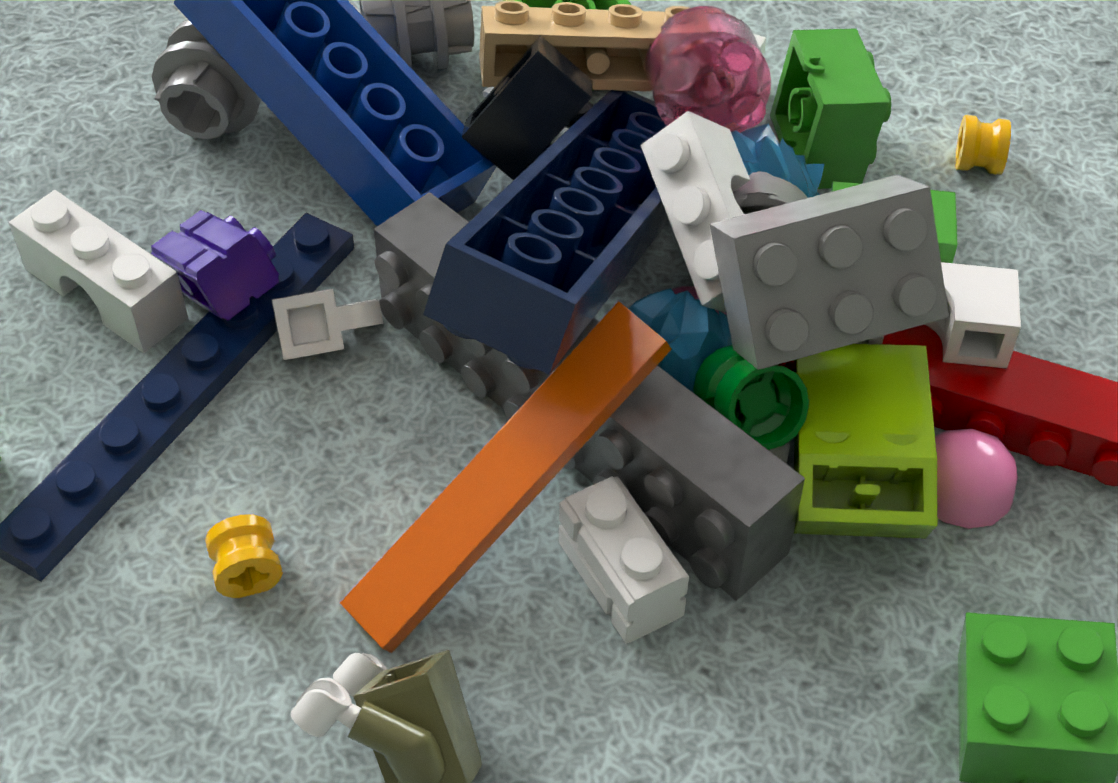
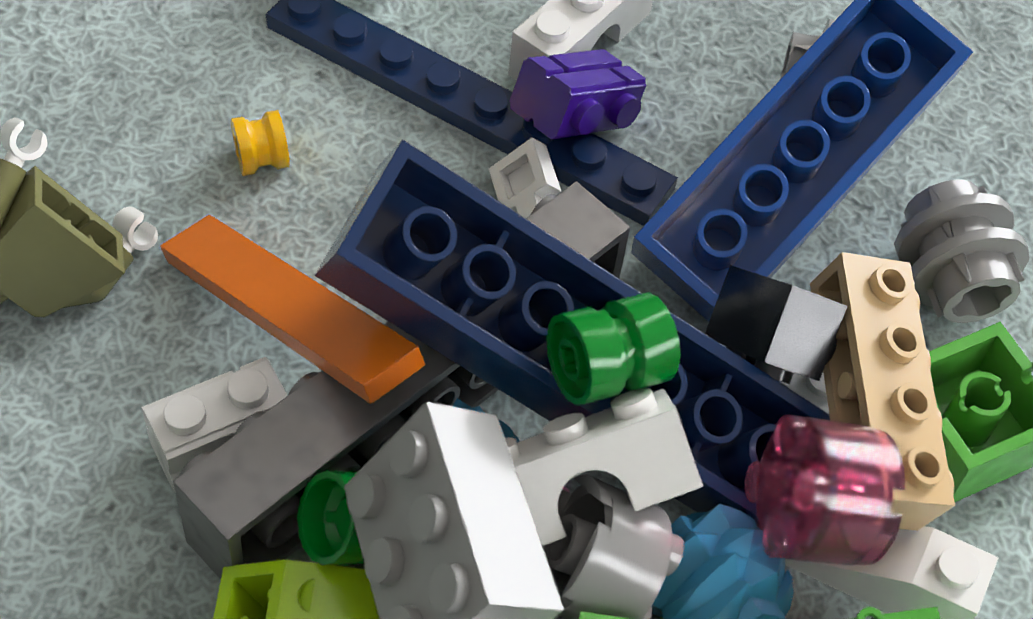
camera: 85 degrees right, 5 degrees up
(627, 152) = (611, 349): none -> green wheel

